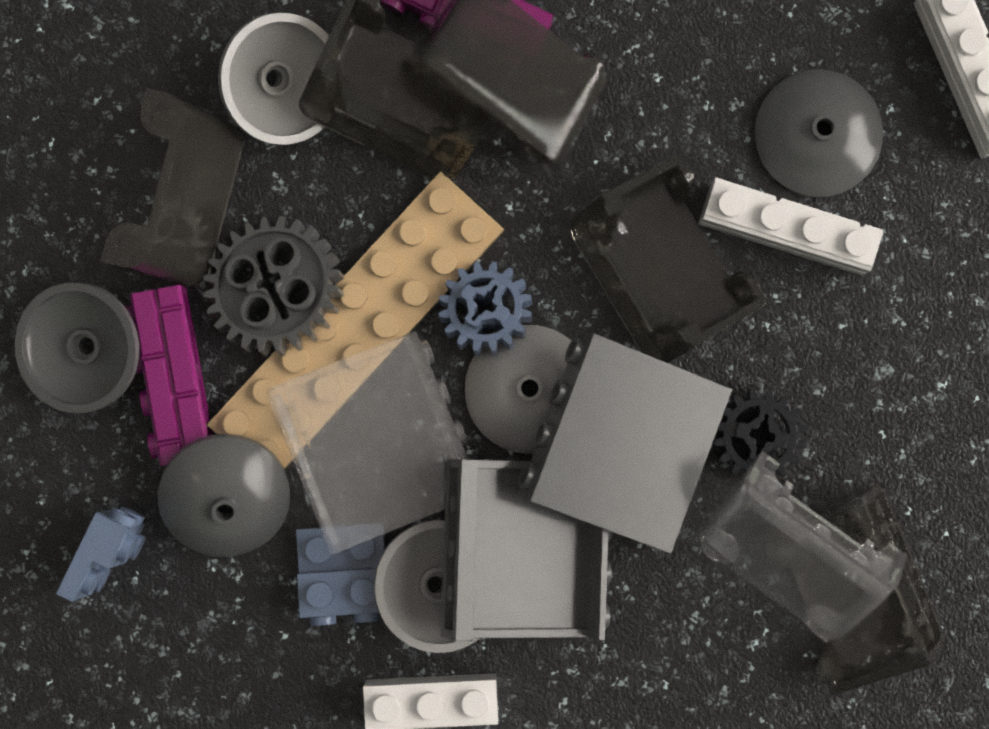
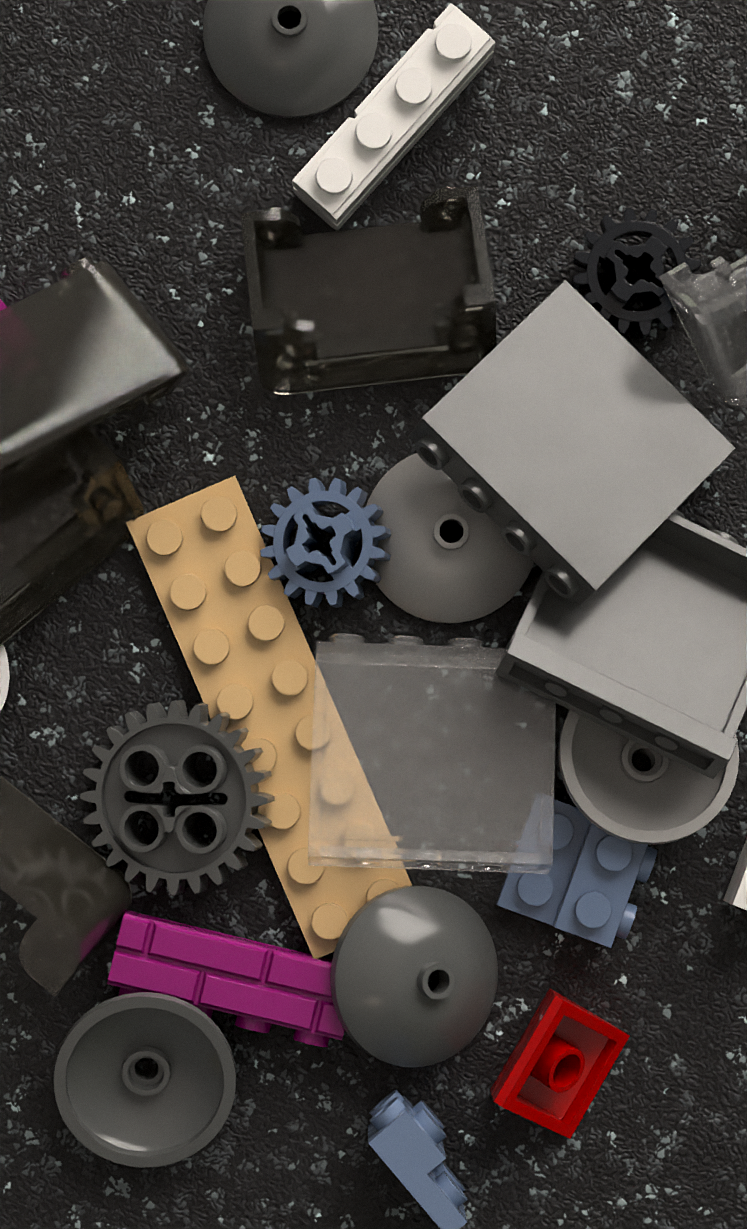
camera: 75 degrees left, 0 degrees up
(208, 617) = (558, 1064): none -> red slope

